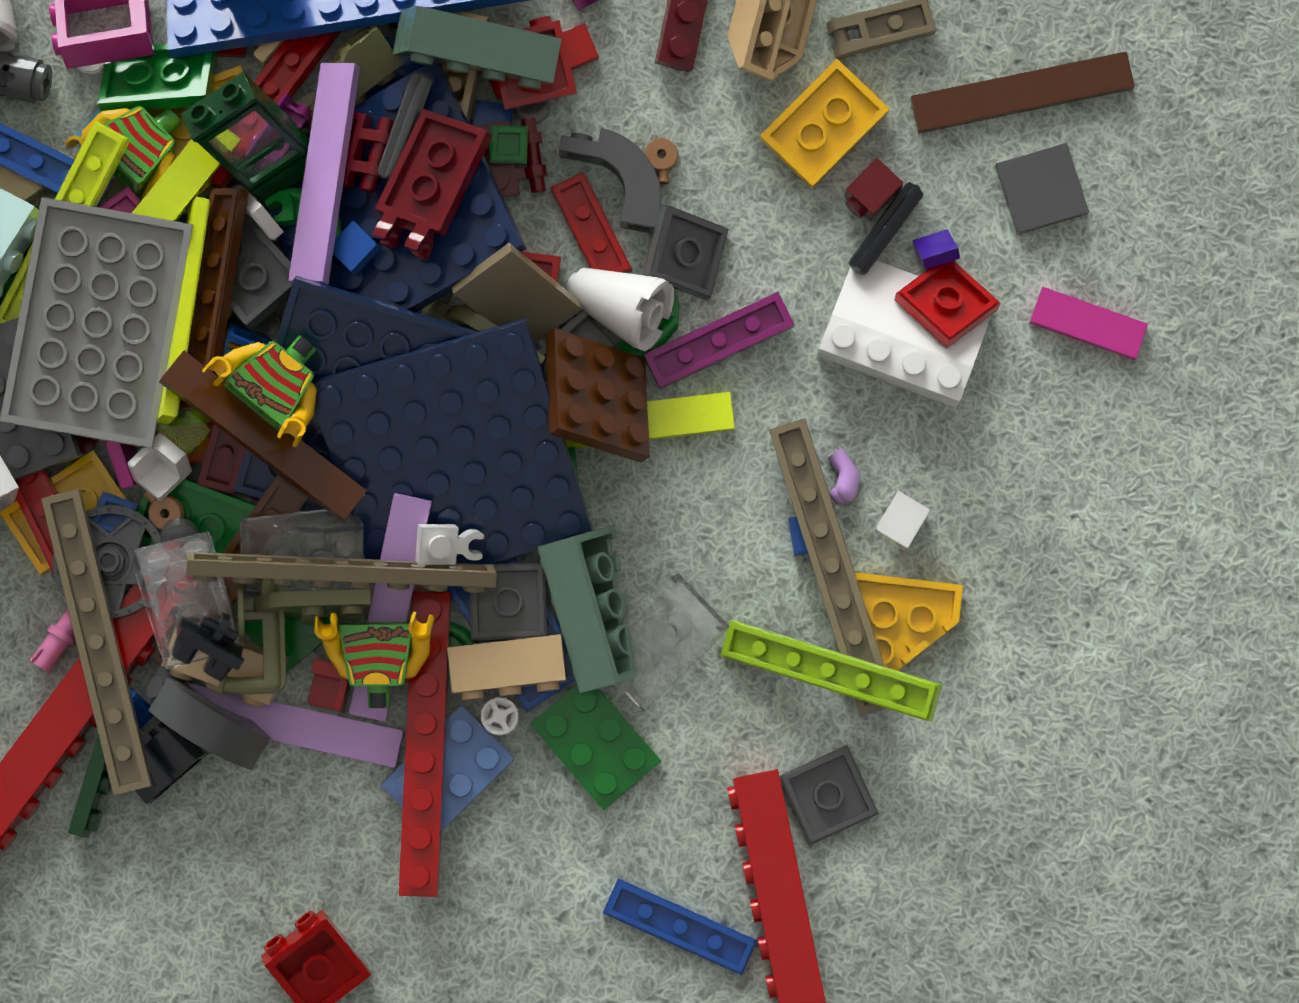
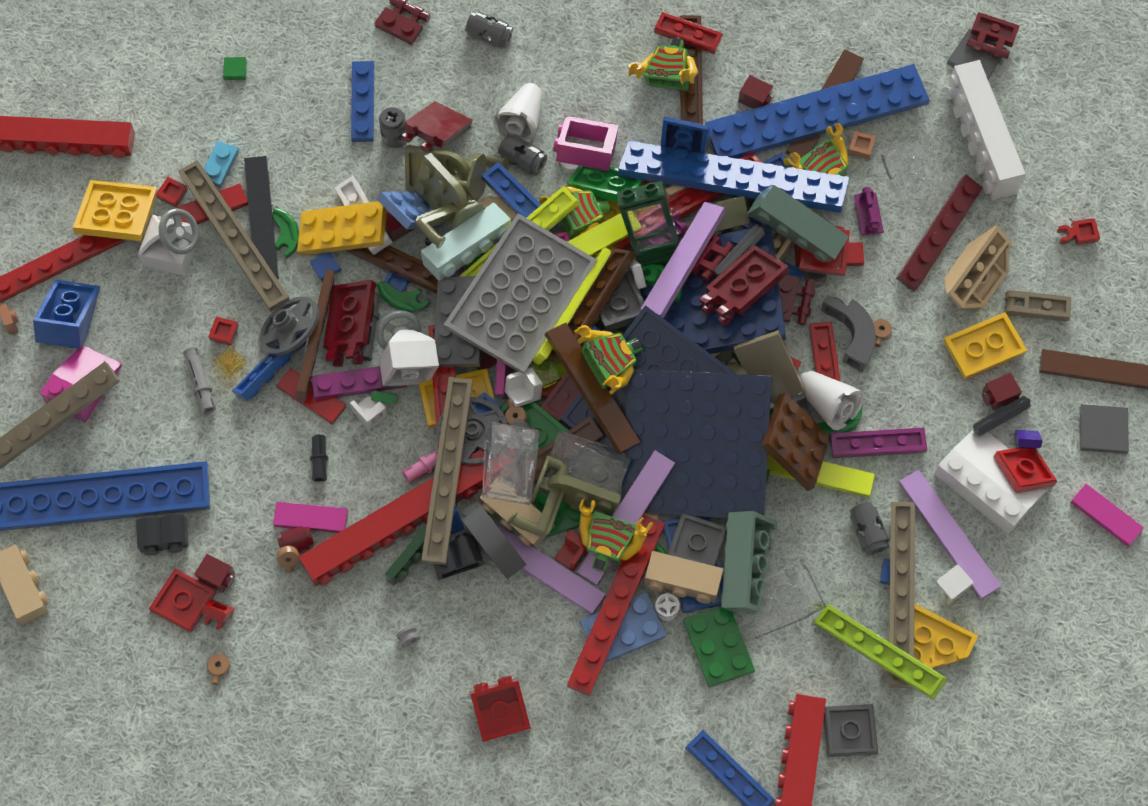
camera: 20 degrees right, 15 degrees down
(140, 908) = (408, 636): none -> light grey bush
(211, 638) = (507, 482): black hips -> none
(323, 571) = (617, 485): dark tan plate -> none
(355, 248) = (685, 306): blue tile -> none
(441, 543) = (672, 490): white plate -> none
(508, 144) = (794, 288): green tile -> none
(686, 251) = (878, 385): dark grey tile -> none
(739, 468) = (875, 538): none -> dark grey piece
(847, 480) = (929, 548): lavender arm -> none
(870, 442) = (949, 533): none -> lavender tile

